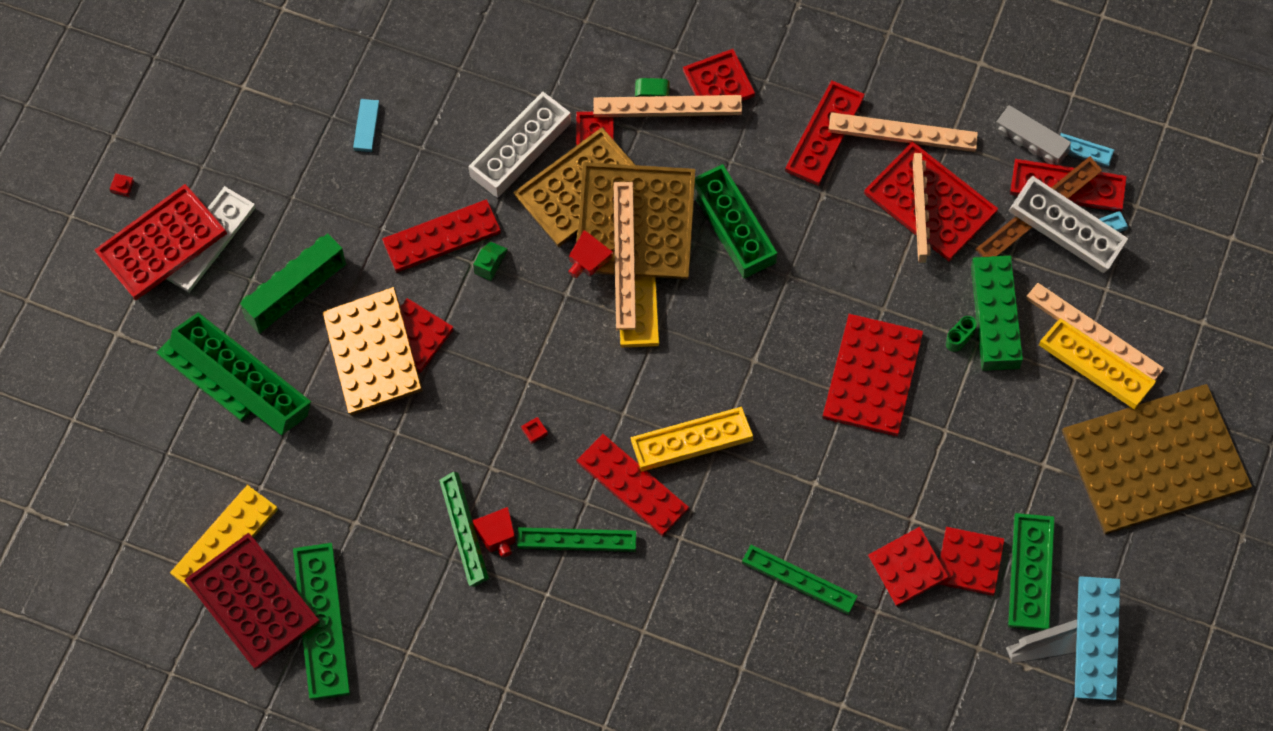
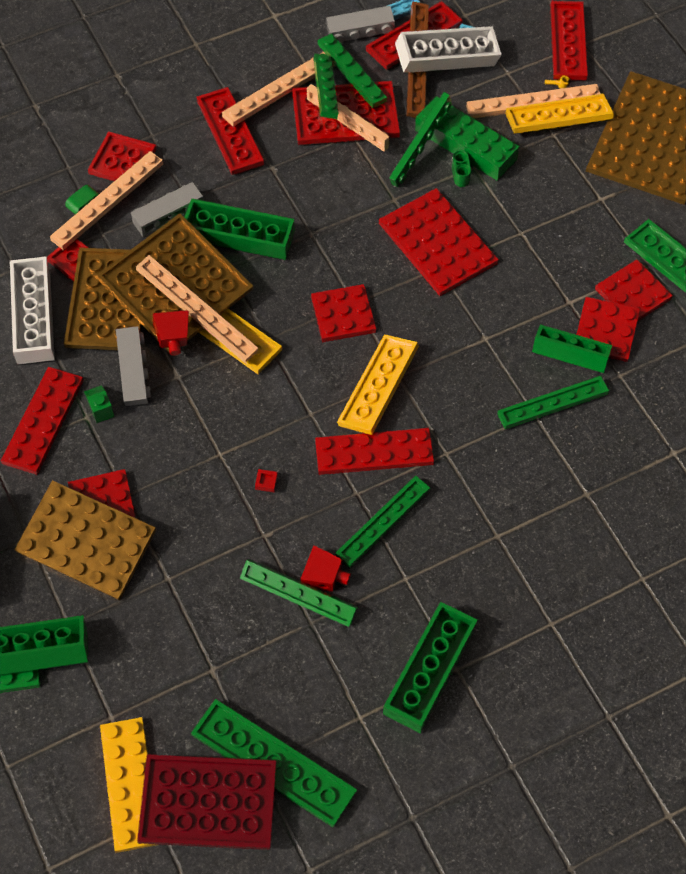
camera: 50 degrees left, 5 degrees down
(485, 666) = (430, 667): none -> green brick
(537, 255) = (132, 366): none -> light grey brick
(702, 154) = (160, 211): none -> light grey brick
(735, 361) = (343, 313): none -> red plate
(860, 554) = (571, 348): none -> green brick
(929, 165) = (325, 86): none -> green plate
(943, 282) = (418, 144): none -> green plate
(975, 170) = (352, 71): none -> green plate
(1135, 336) = (562, 83): none -> yellow hand
(1190, 308) = (568, 40): none -> red plate

